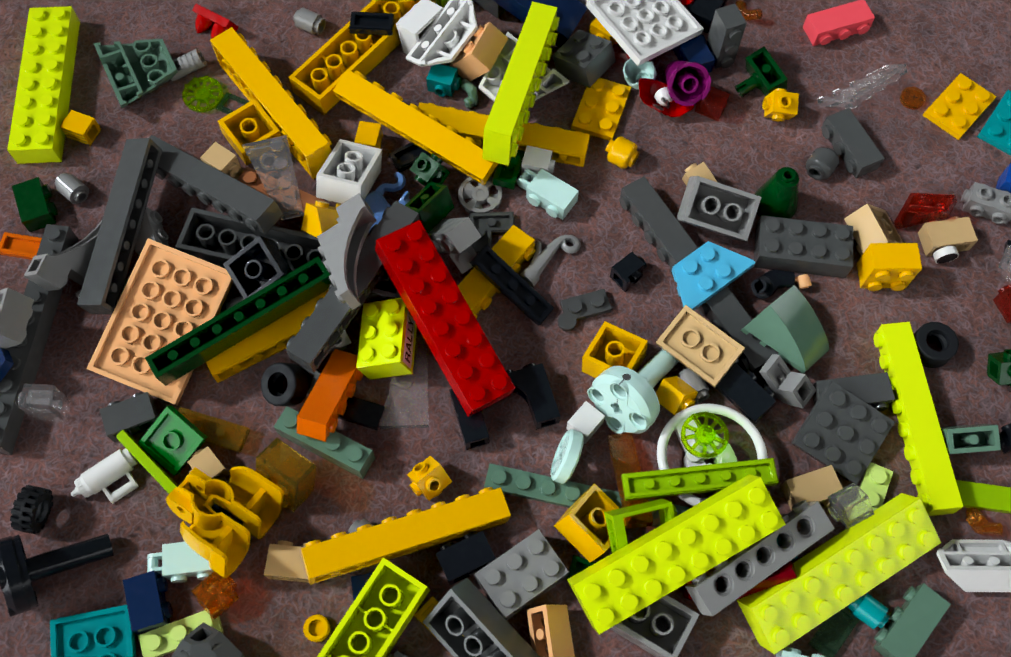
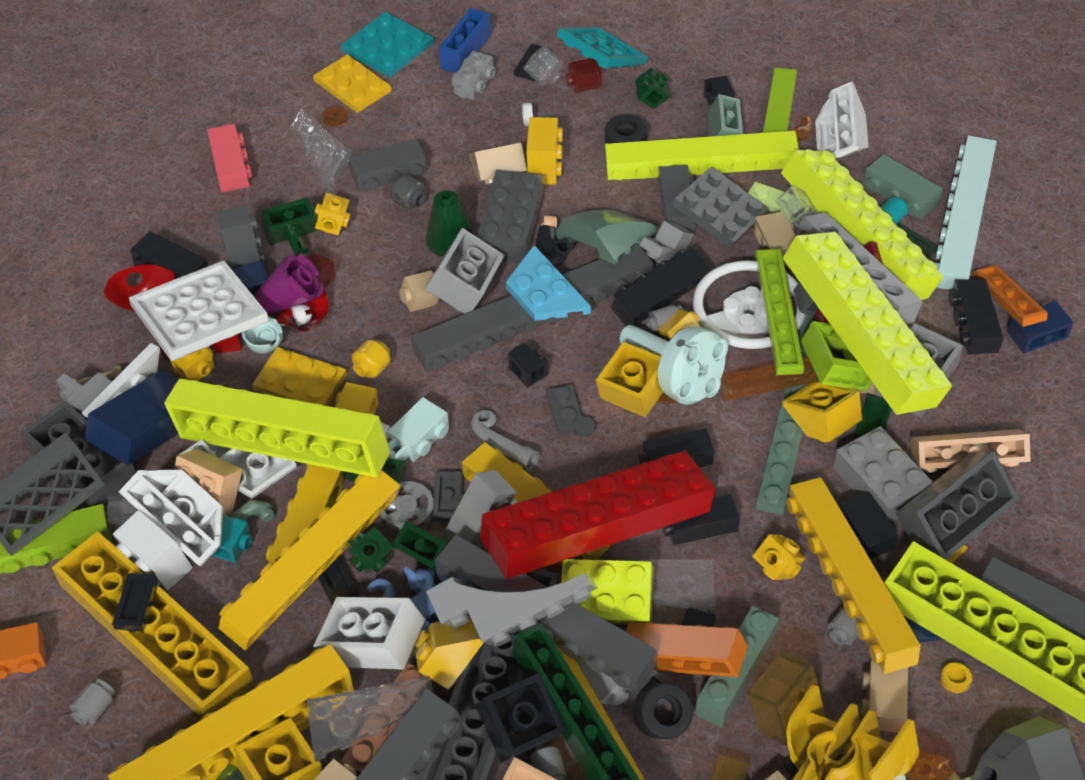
camera: 85 degrees left, 15 degrees down
(369, 134) = (305, 622): yellow brick -> none
(512, 285) = (544, 466): black tile -> none
(567, 456) = (749, 411): light aqua wheel -> none
(584, 58) = (234, 371): dark grey brick -> none
(586, 420) = (709, 413): white brick -> none
(700, 346) = (631, 297): tan plate -> none
(704, 435) = (732, 301): clear neon green wheel -> none
(748, 14) = (193, 237): clear orange arm -> none
(924, 208) = (476, 119): clear red wing -> none
(948, 232) = (507, 110): tan brick -> none

